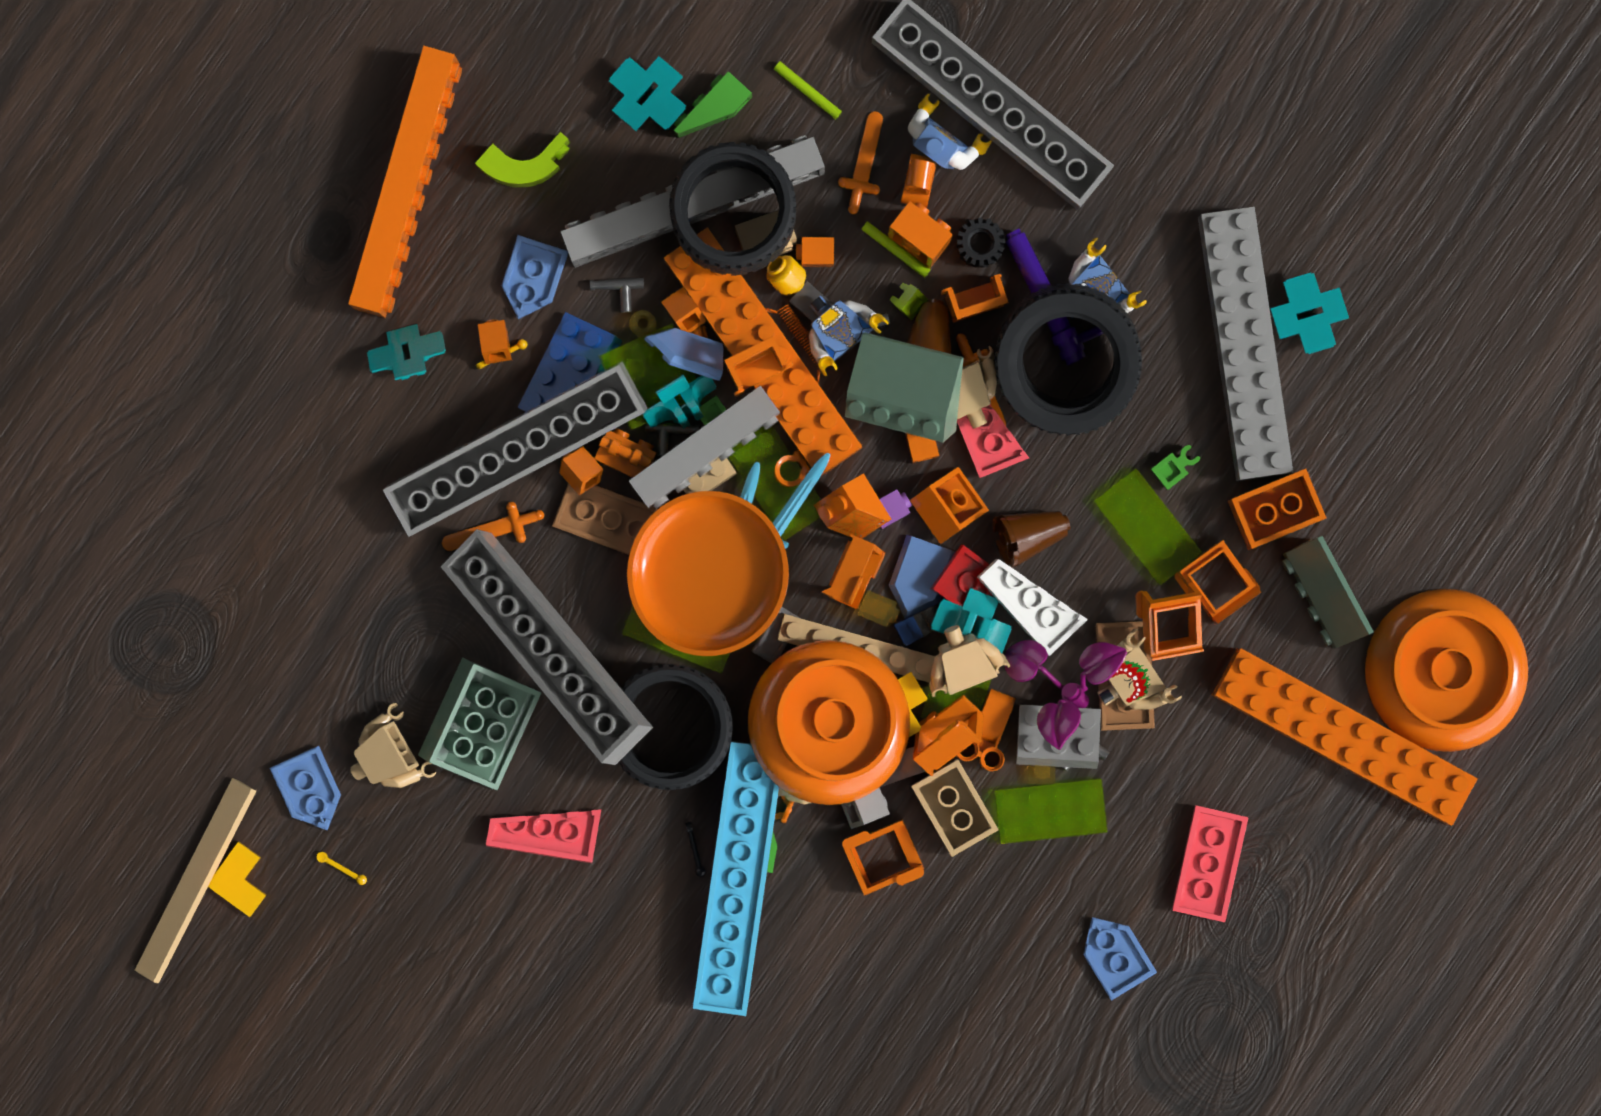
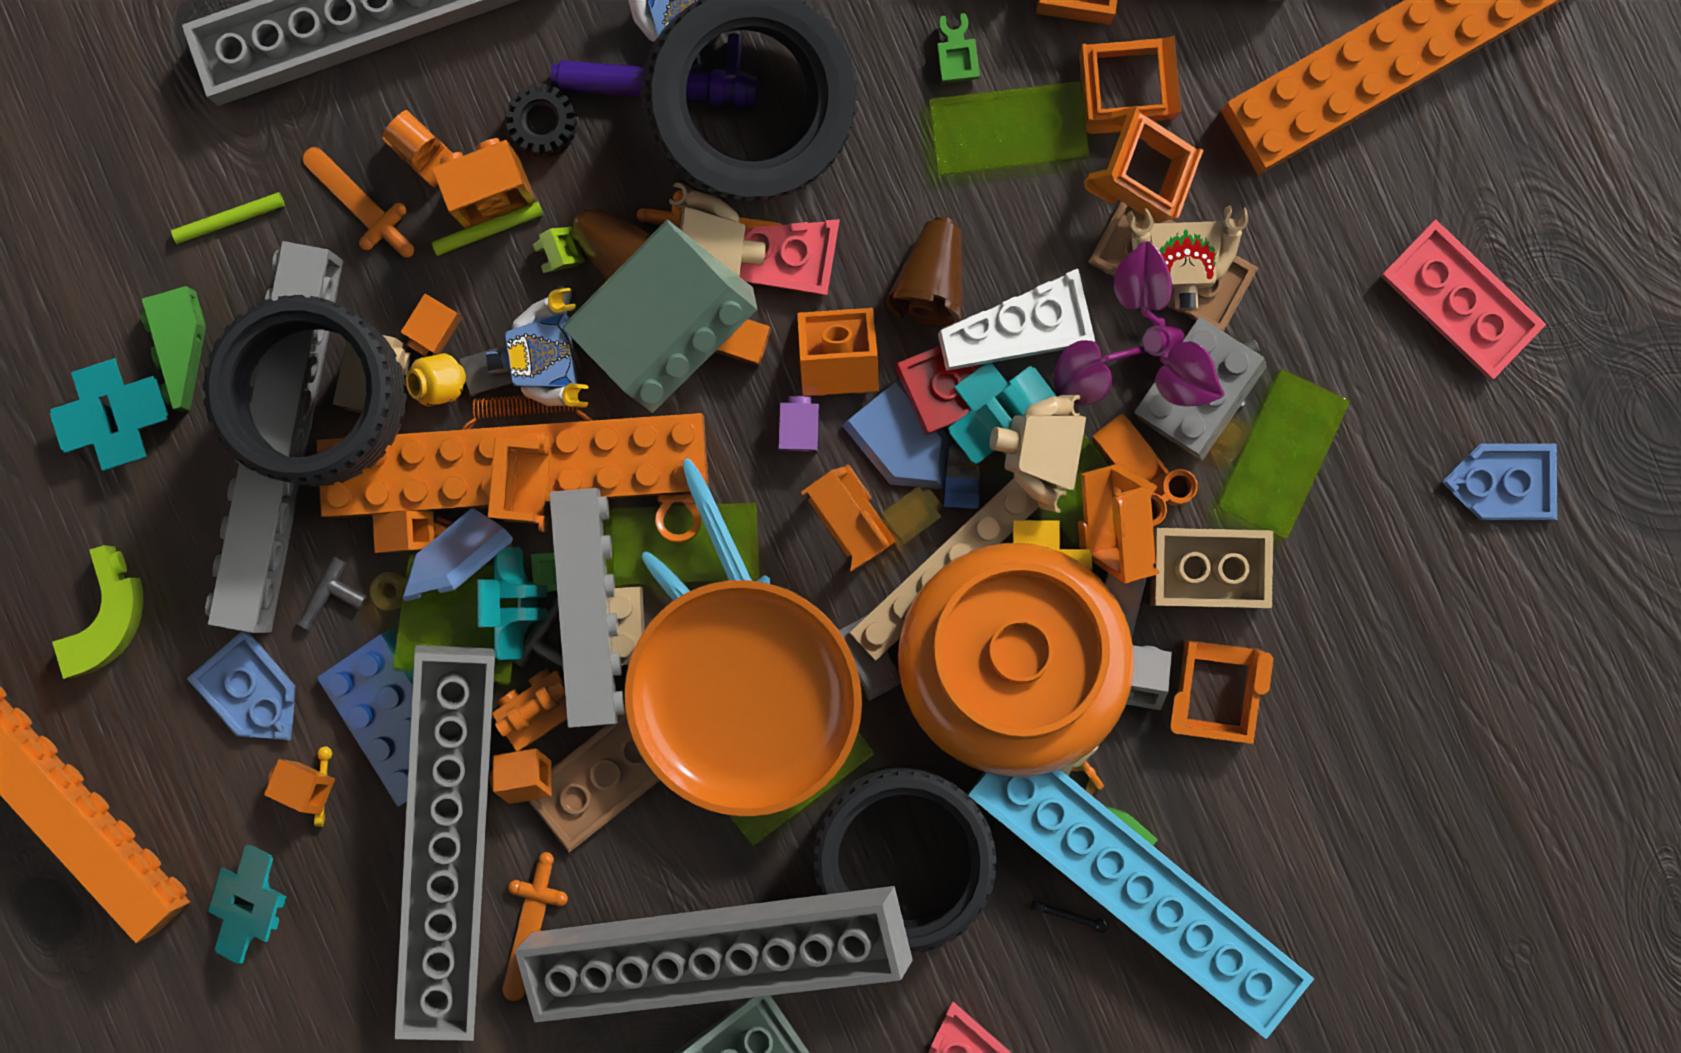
camera: 60 degrees left, 0 degrees up
(853, 509) = (772, 470): orange slope -> none
(941, 144) = (389, 95): torso -> none
(976, 300) = (608, 167): orange piece -> none

